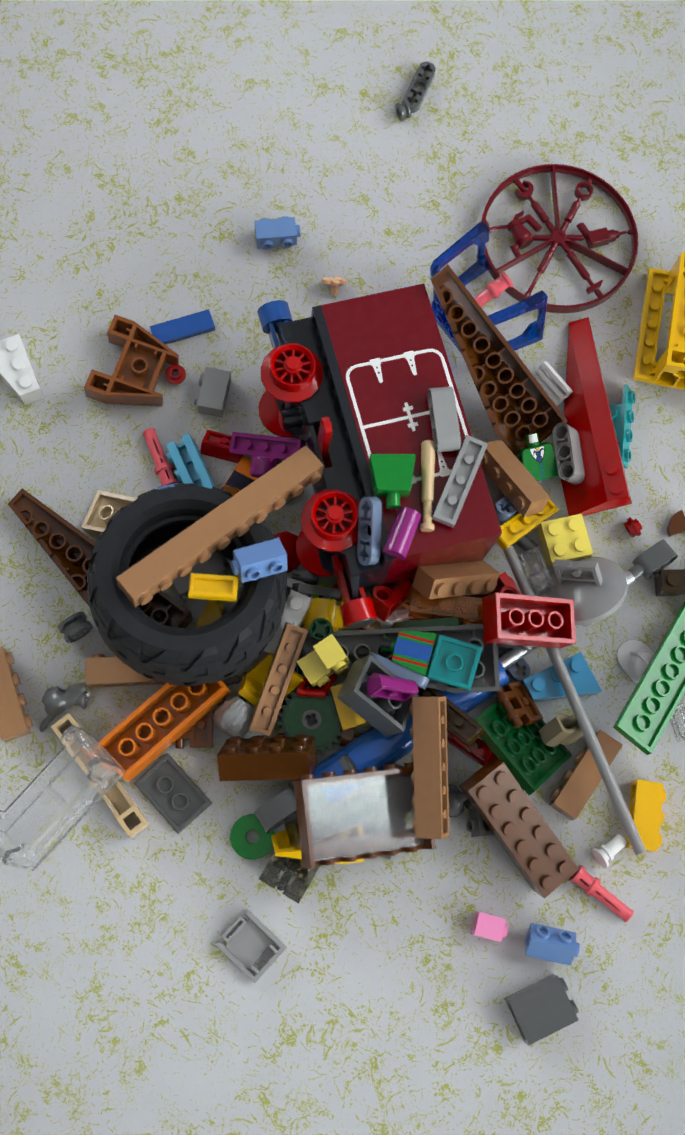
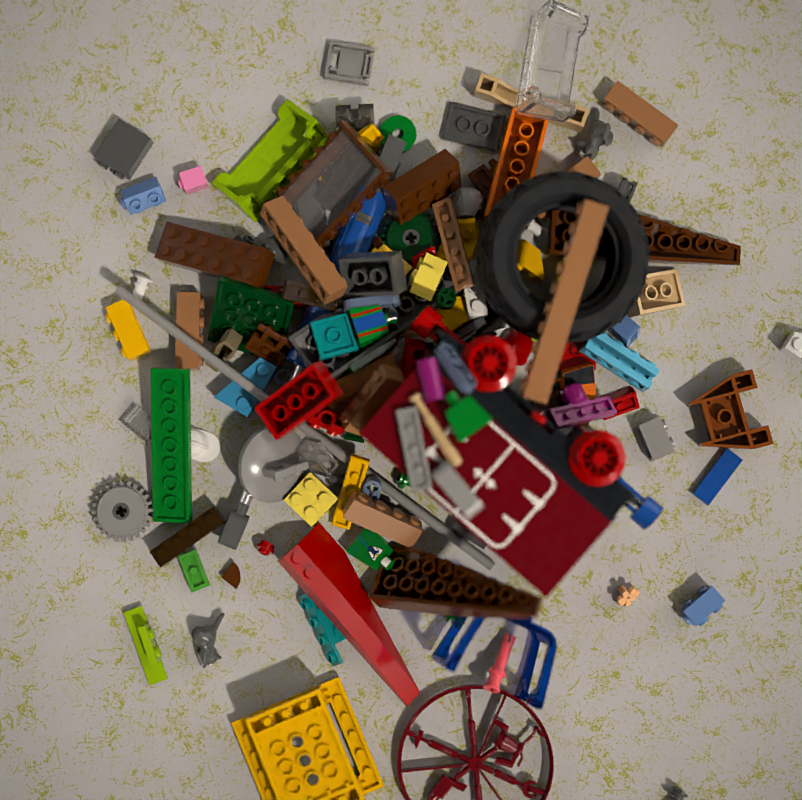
camera: 155 degrees right, 10 degrees up
(163, 468) = (677, 371): coral pin -> none
(175, 380) = (688, 434): red plate -> none
(213, 587) = (538, 252): yellow tile -> none
(259, 560) = (518, 290): medium blue brick -> none
(391, 687) = (366, 281): magenta brick -> none
(397, 891) = (272, 160): none -> lime windscreen
(555, 398) = (396, 625): white tile -> none
(562, 447) = (351, 569): light grey beam -> none
(592, 887) = (137, 255): coral pin -> none

